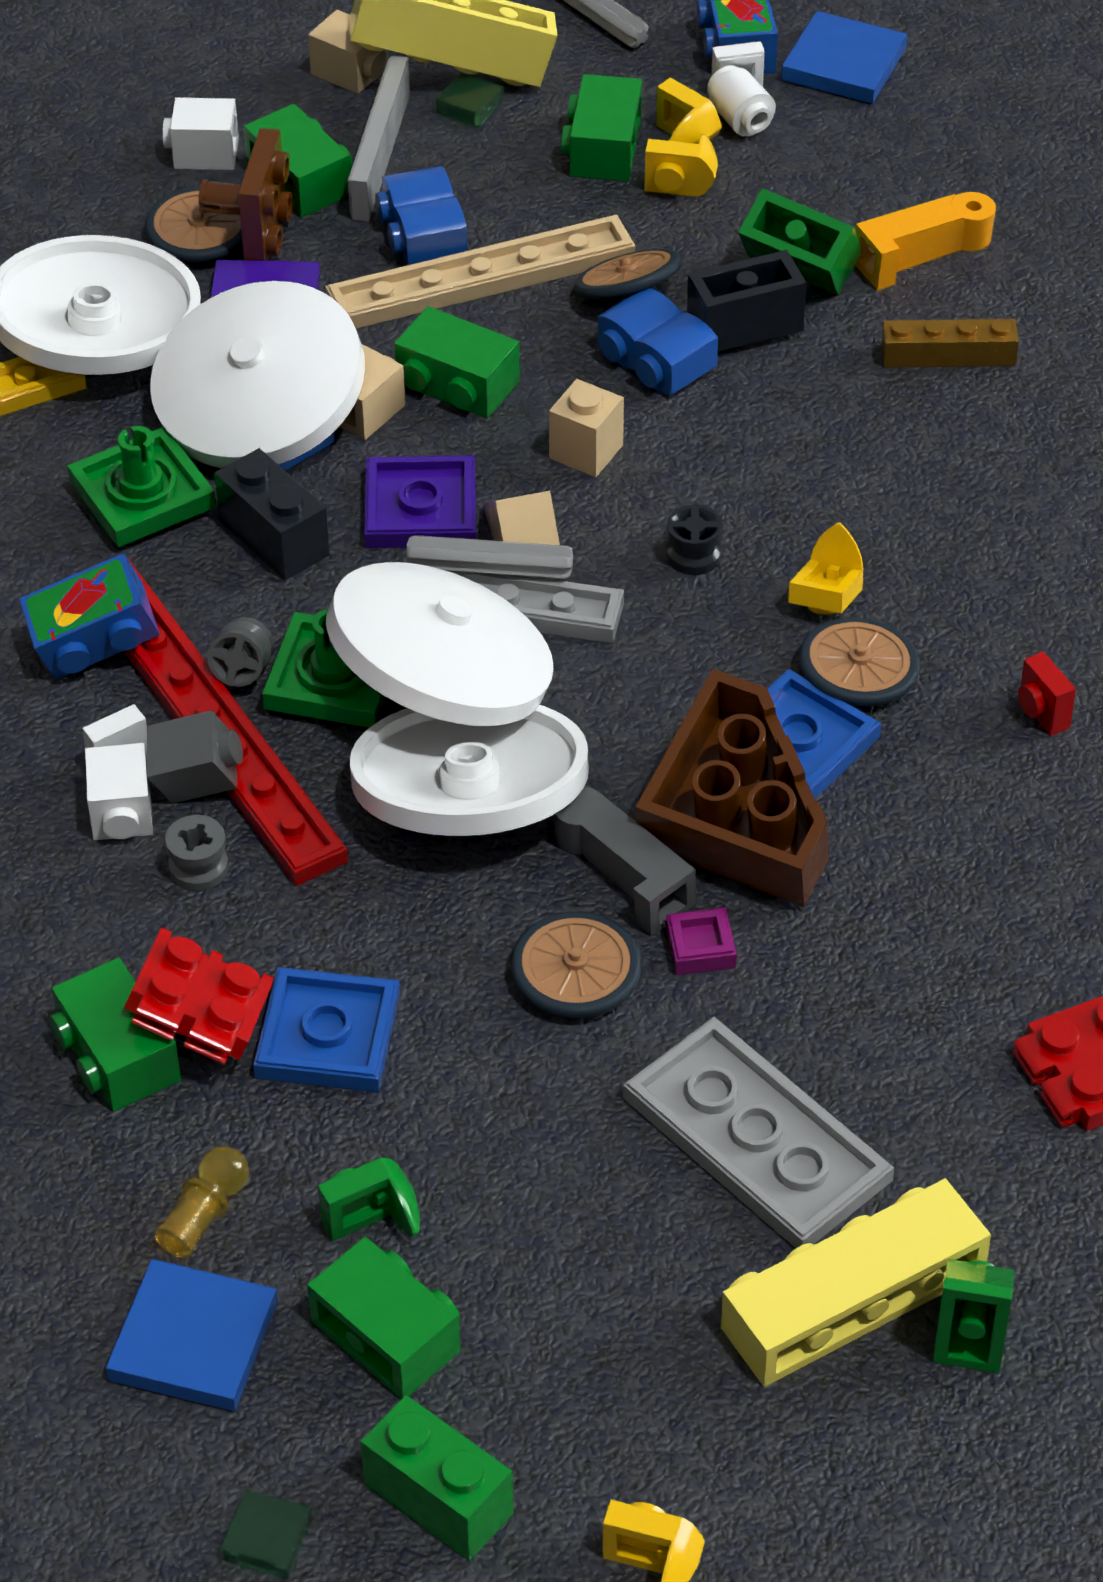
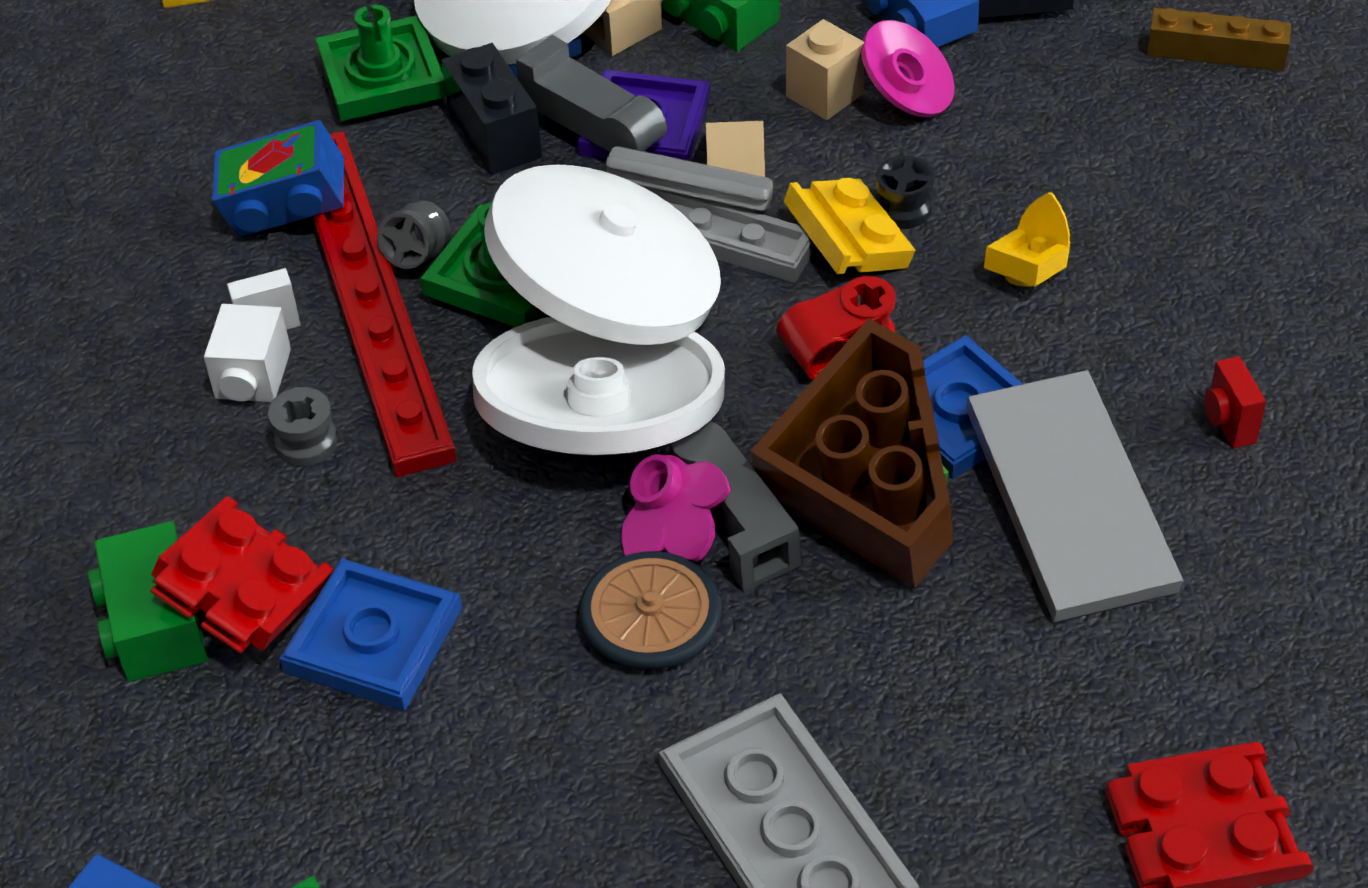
camera: 15 degrees right, 0 degrees up
(193, 756) = (326, 329): dark grey brick -> none
(221, 1175) = (202, 773): clear yellow pin -> none
(368, 1195) = (342, 826): green plate -> none
(371, 494) = (586, 100): none -> dark grey leg
(579, 874) = (673, 506): none -> dark pink plate
(652, 580) = (849, 226): none -> yellow plate
(665, 415) = (907, 68): none -> dark pink dish
(670, 678) = (822, 326): none -> red piece
(700, 941) = (792, 607): magenta tile -> none
(859, 661) = (1041, 336): medium nougat wheel -> none
(922, 800) = (1073, 496): none -> light grey tile

